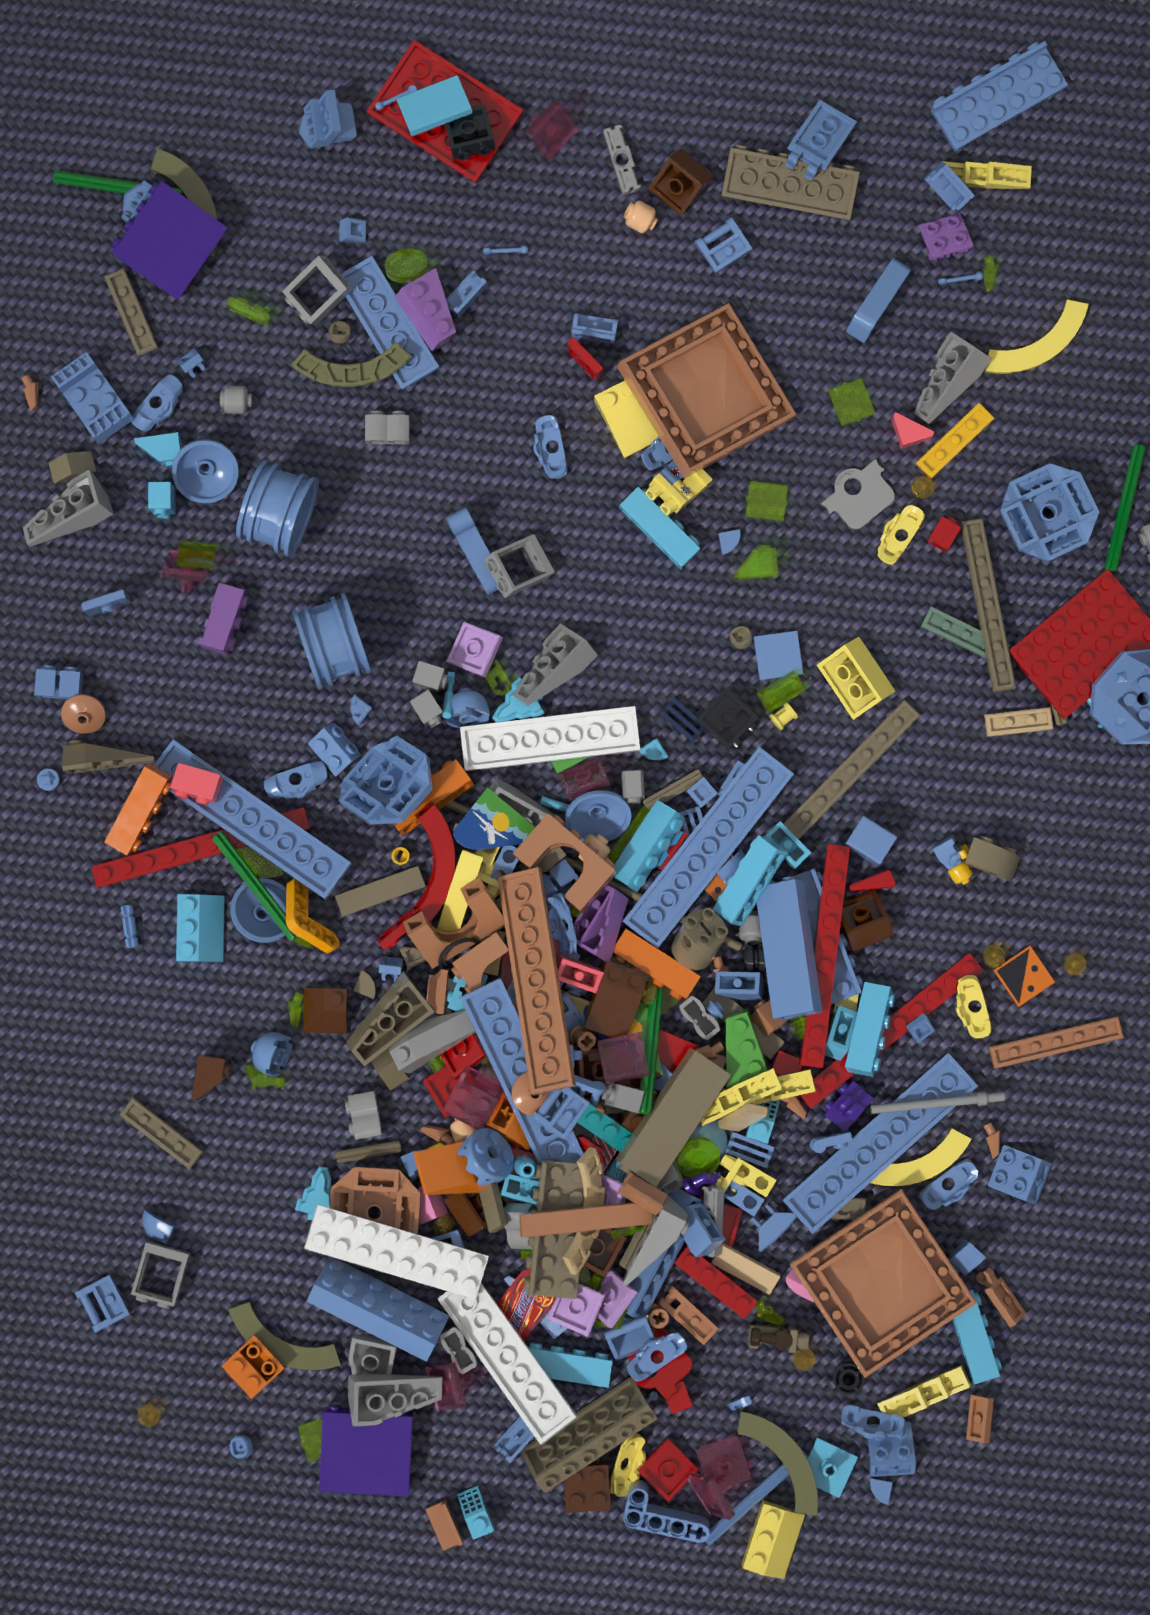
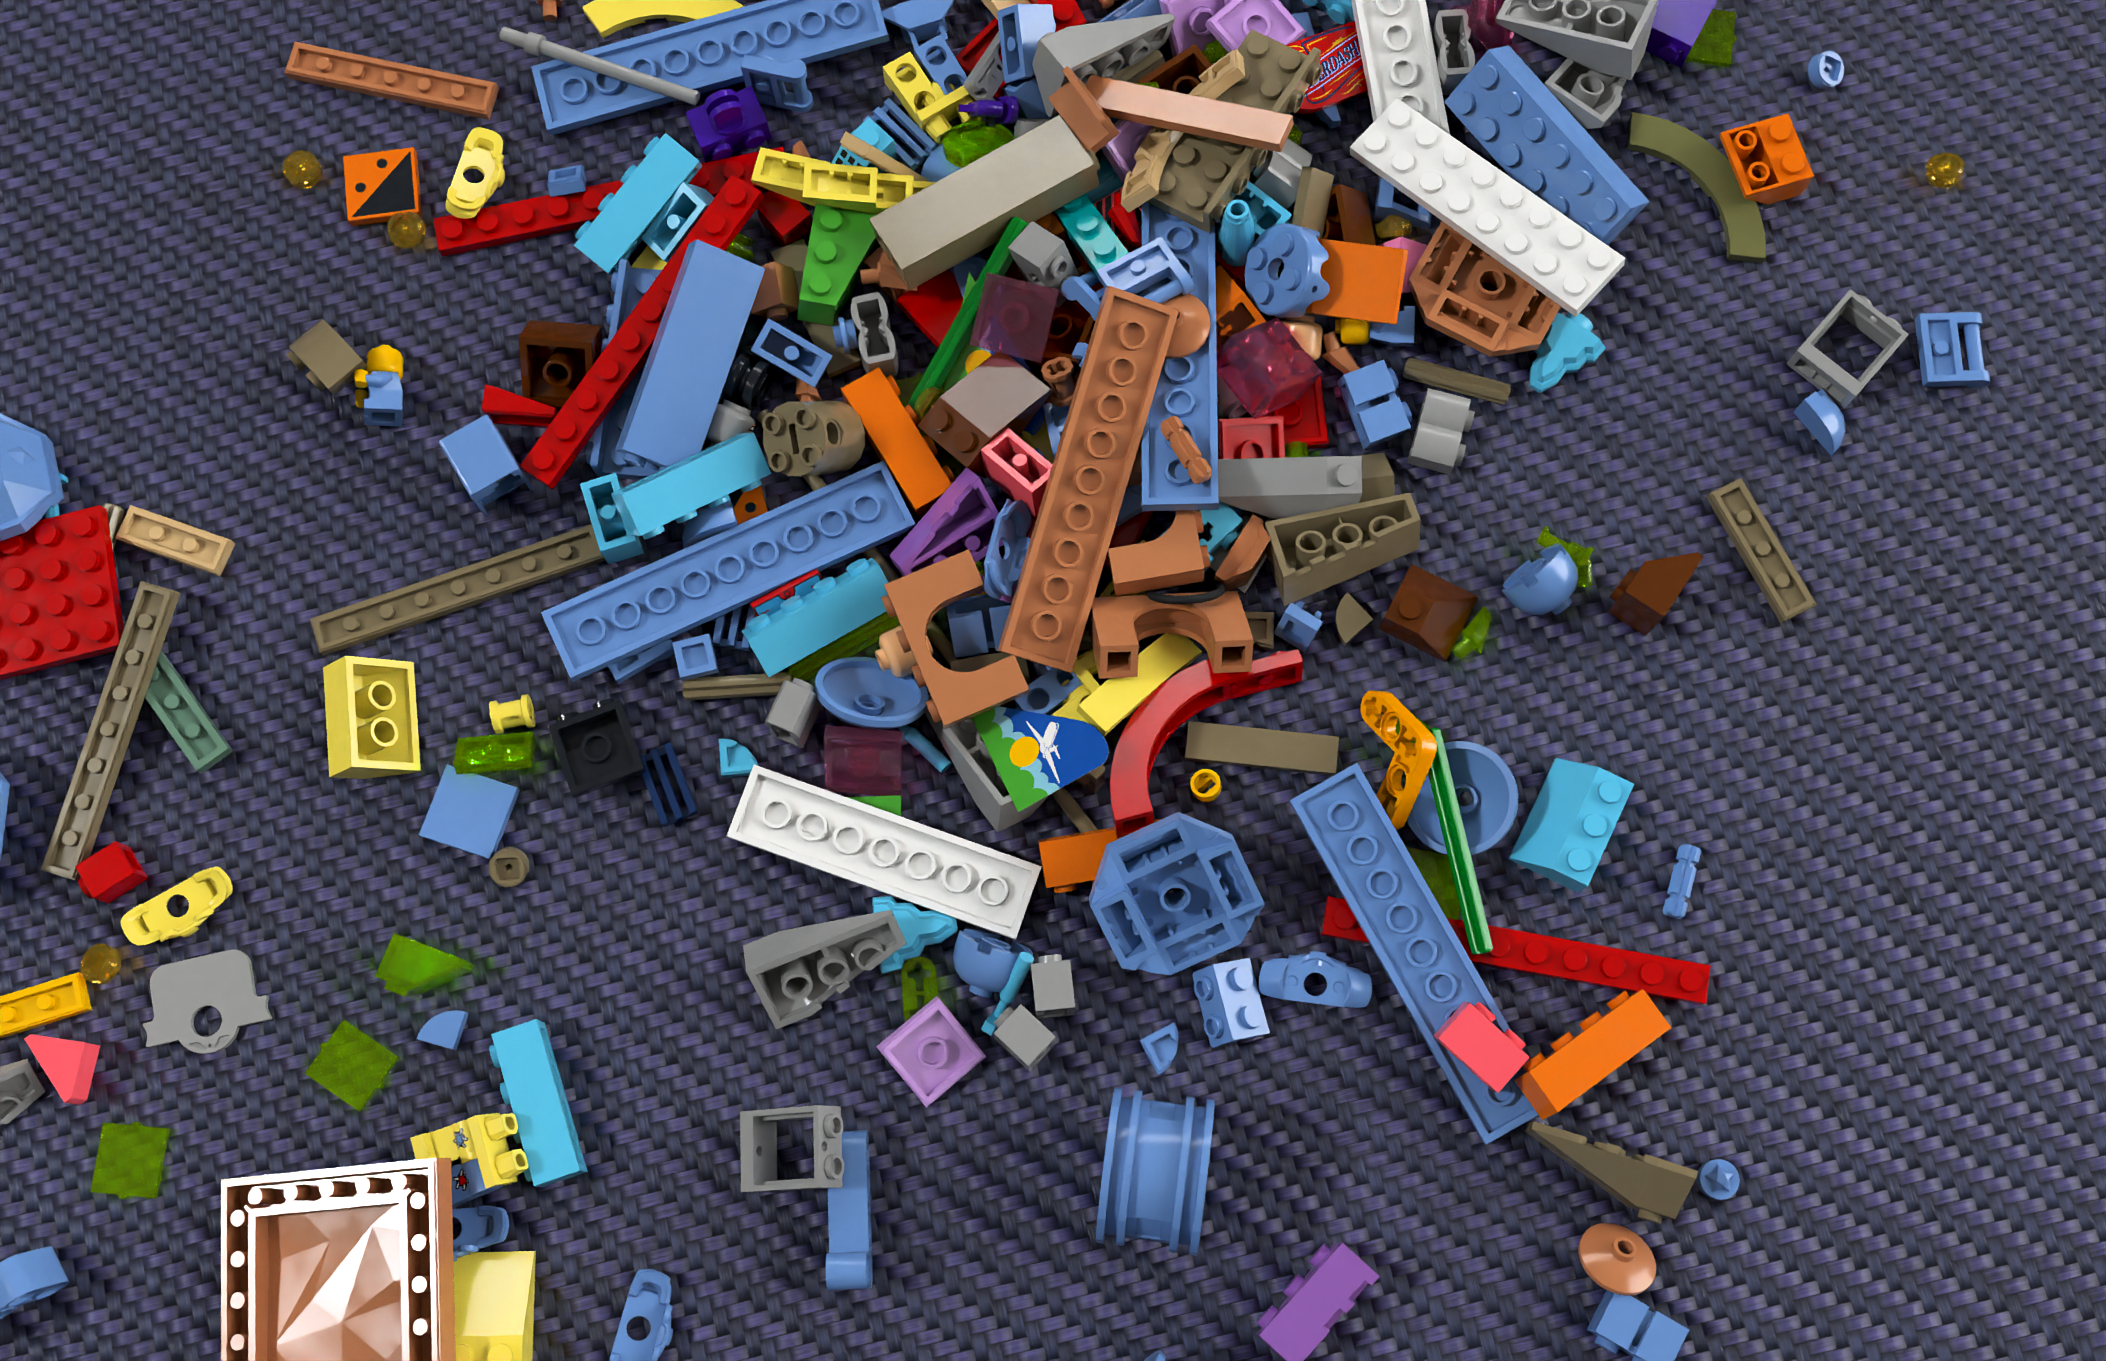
camera: 155 degrees left, 10 degrees down
(406, 1112) = (1374, 404): none -> medium blue piece
(491, 1019) = (1186, 450): none -> nougat axle

